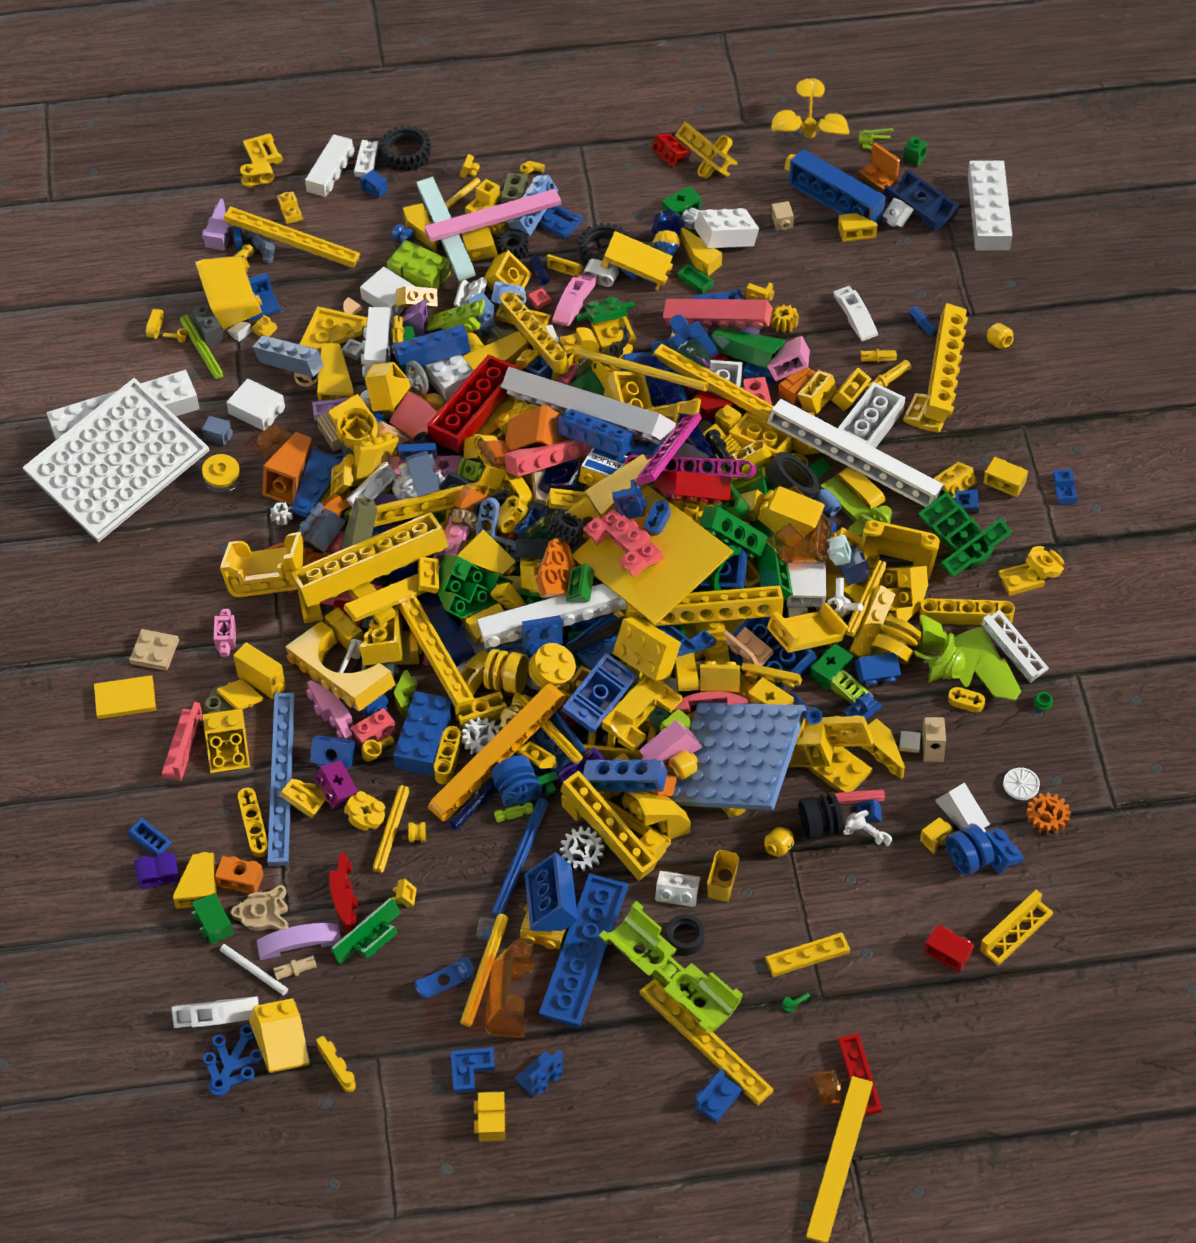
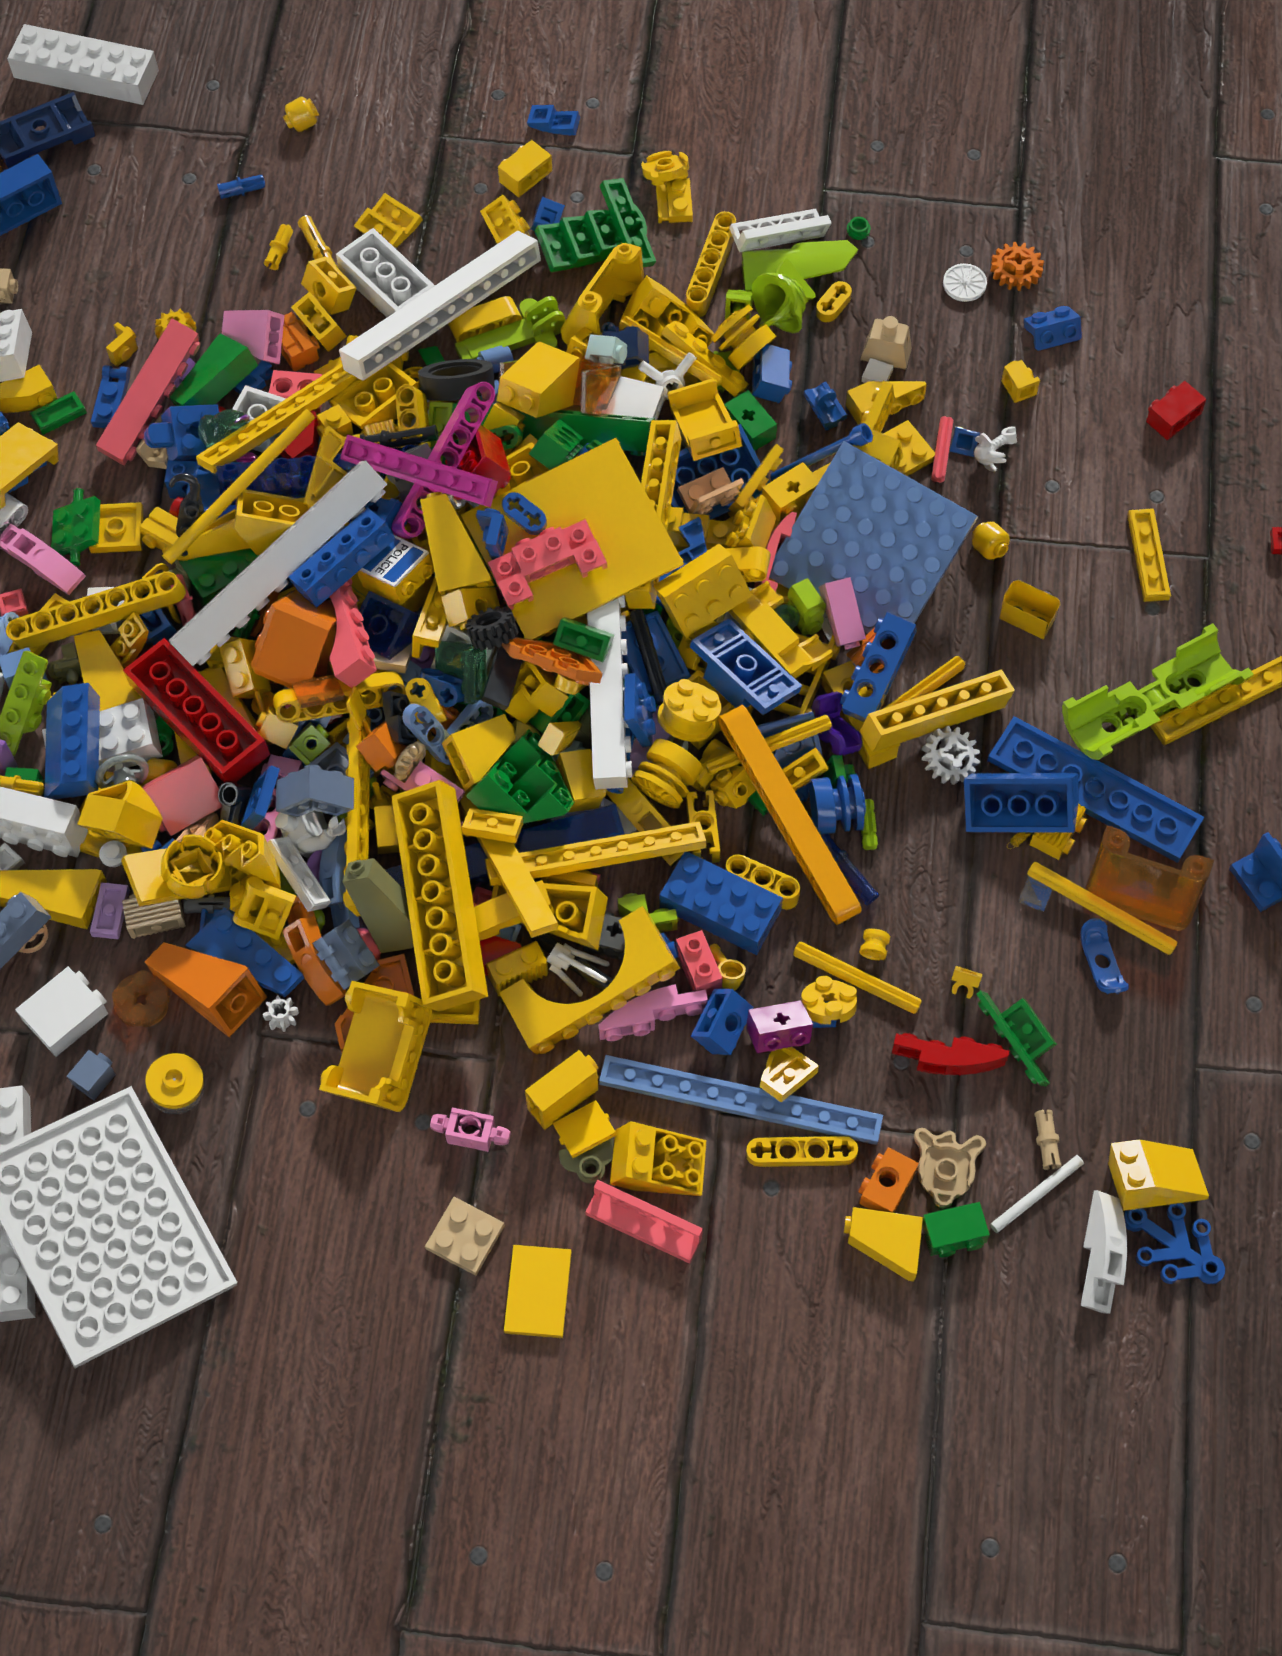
camera: 75 degrees left, 10 degrees up
(140, 825) = (779, 1310): blue slope -> none
(156, 870) = (853, 1293): dark purple brick -> none
(298, 937) = (1005, 1129): lavender slope -> none
(336, 1064) = (1207, 1114): yellow plate -> none
(466, 1063) = (1233, 960): blue plate -> none
(478, 734) = (747, 832): white gear -> none
(520, 857) = (941, 833): blue axle -> none
(582, 338) = (125, 565): yellow brick -> none
(654, 843) = (964, 670): yellow brick -> none
(660, 810) = (930, 648): yellow brick -> none
(677, 888) = (1029, 664): white bracket -> none
(682, 764) = (870, 605): yellow head -> none
(687, 921) = (1101, 656): black tyre -> none
(790, 1005) = (1214, 588): green hand -> none
(825, 815) = (974, 482): black wheel -> none
(847, 681) = (793, 417): lime slope -> none
(856, 227) = (53, 212): yellow slope -> none
(856, 312) = (203, 246): white slope -> none
(897, 213) = (55, 150): white brick -> none
(946, 363) = (325, 177): yellow brick -> none
(962, 807) = (993, 343): white slope -> none
(969, 849) = (1057, 348): blue wheel -> none
(1011, 922) = (1147, 330): yellow fence -> none

